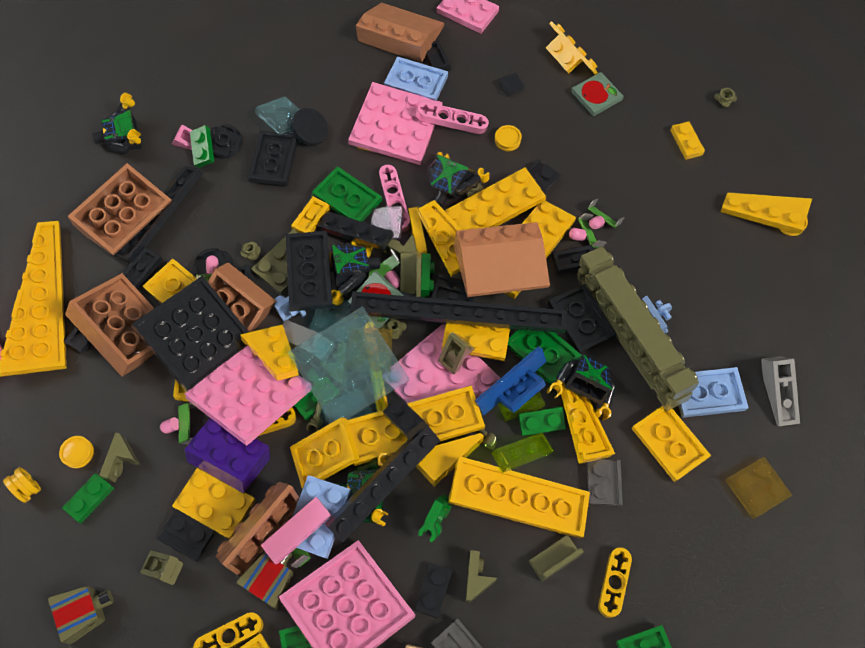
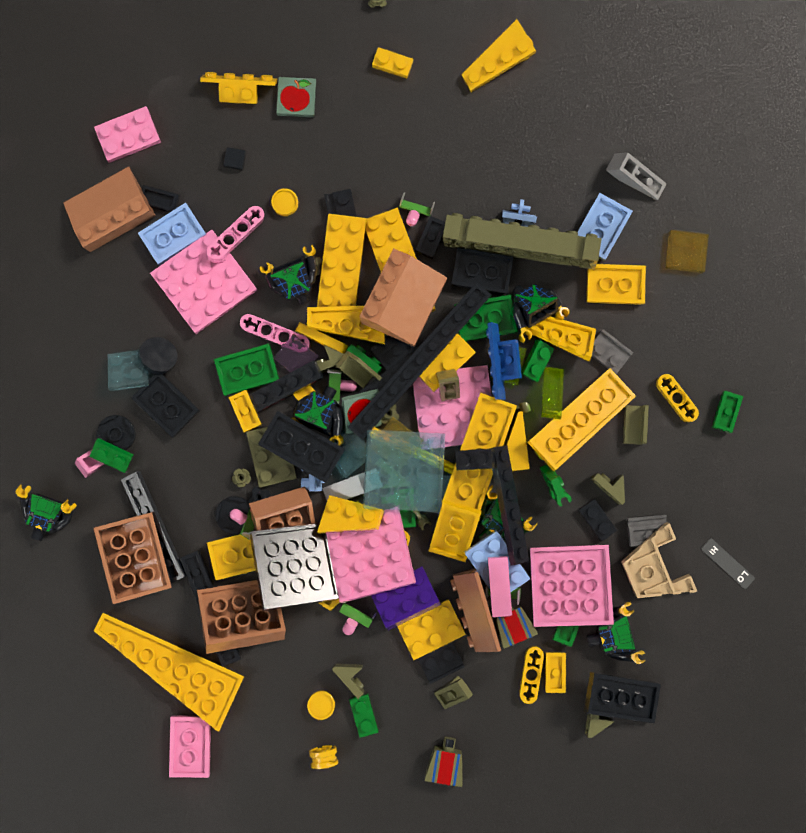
camera: 50 degrees left, 20 degrees up
(601, 218) = (411, 186): piece -> none

